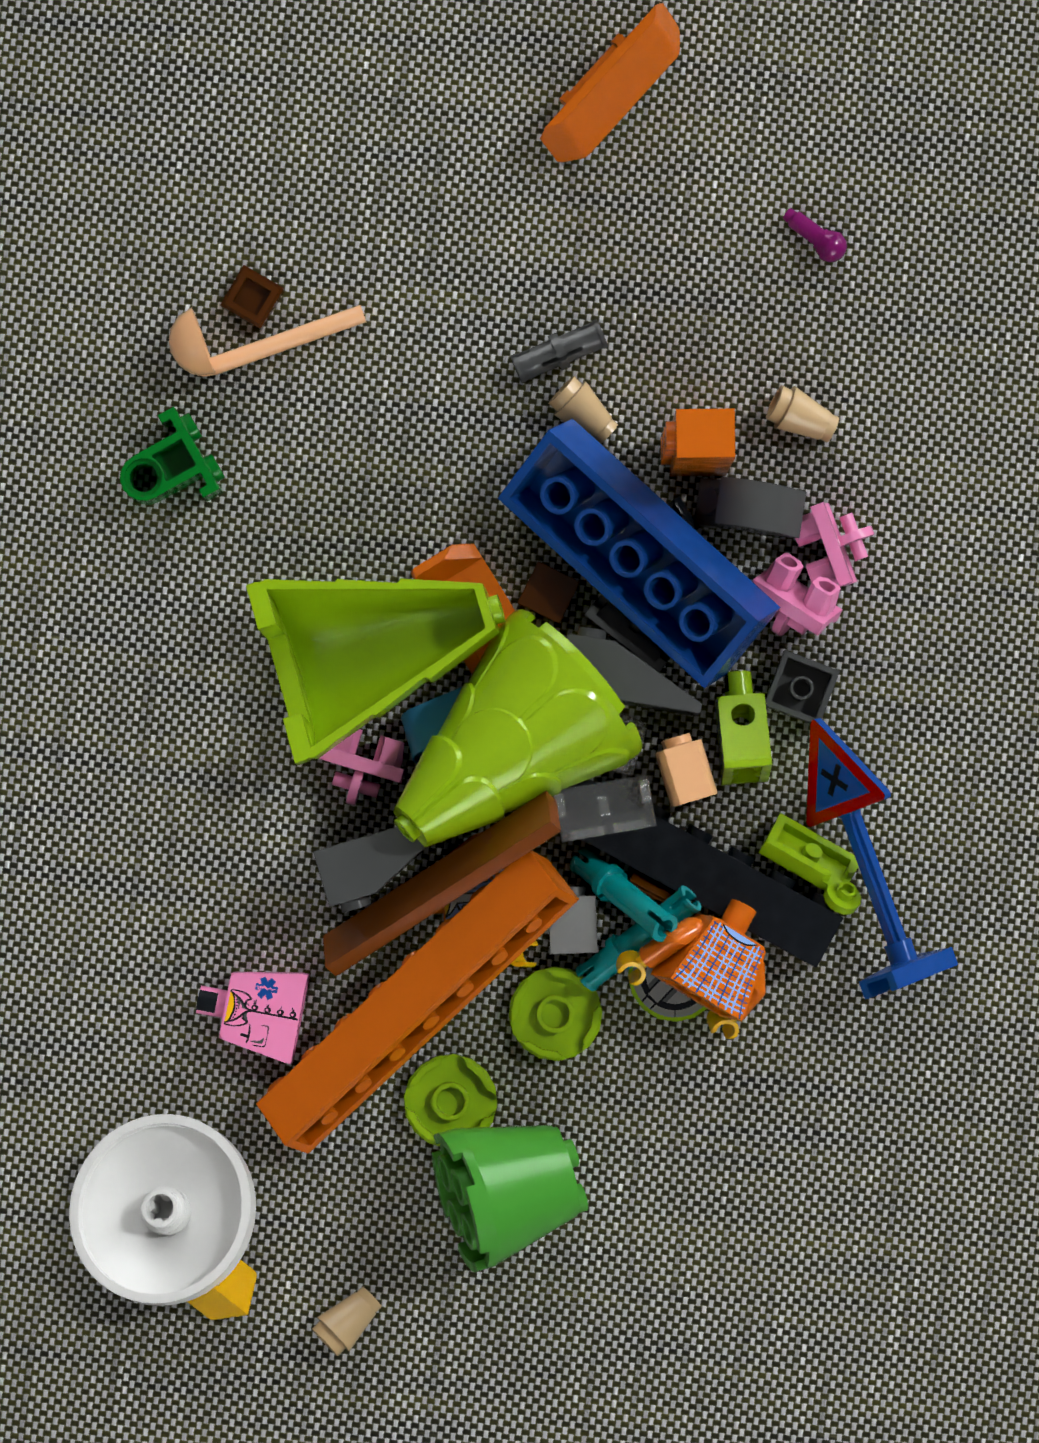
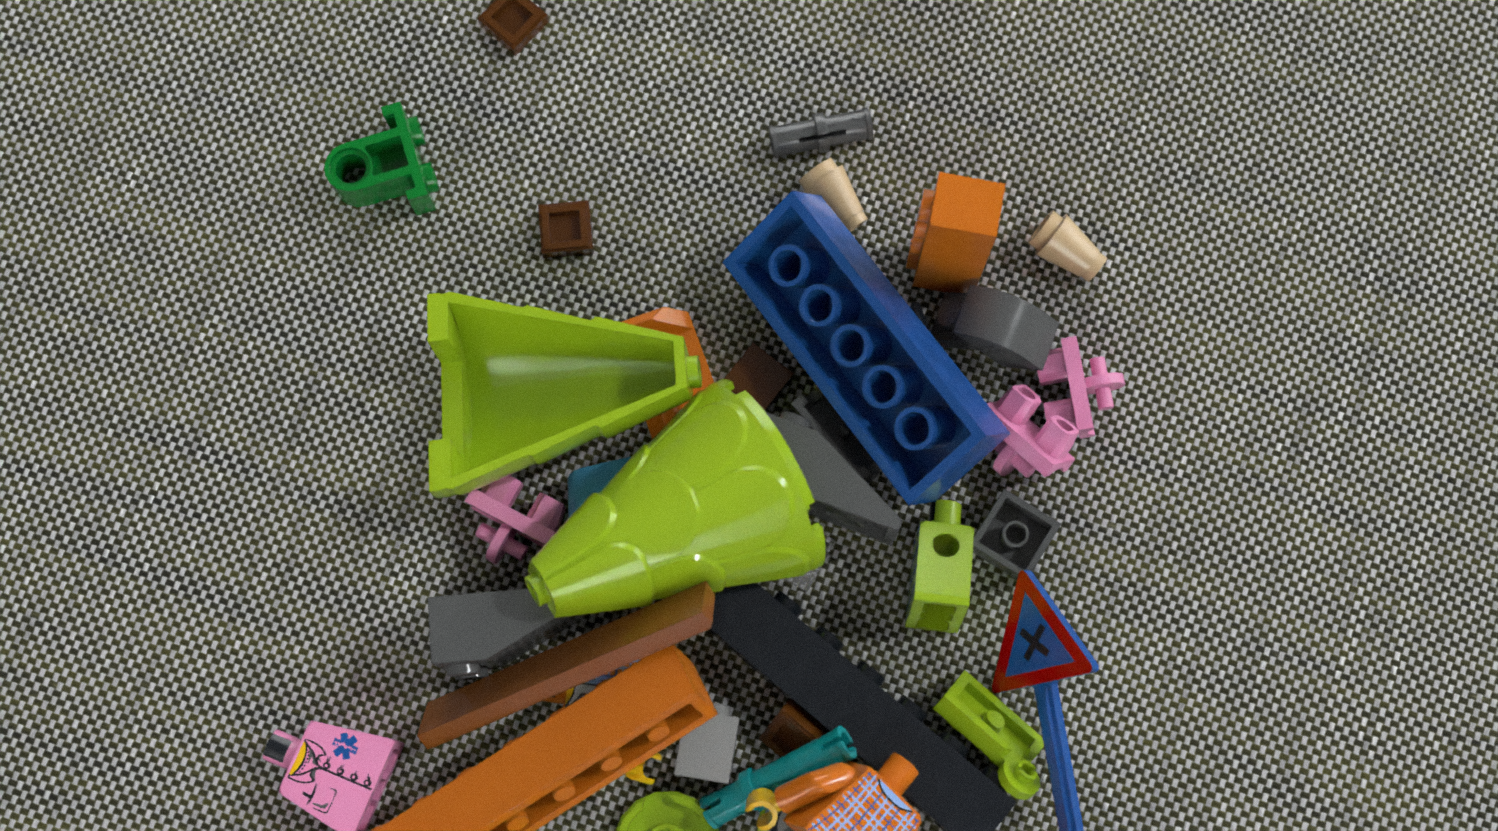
camera: 10 degrees right, 10 degrees down
(192, 354) = (436, 58): light nougat piece -> none
(346, 488) = (565, 229): none -> reddish brown tile
(605, 808) = (768, 621): clear hinge -> none
(611, 885) = (761, 710): teal pin -> none
(685, 770) = (868, 597): light nougat brick -> none
(828, 243) = (1126, 80): magenta piece -> none

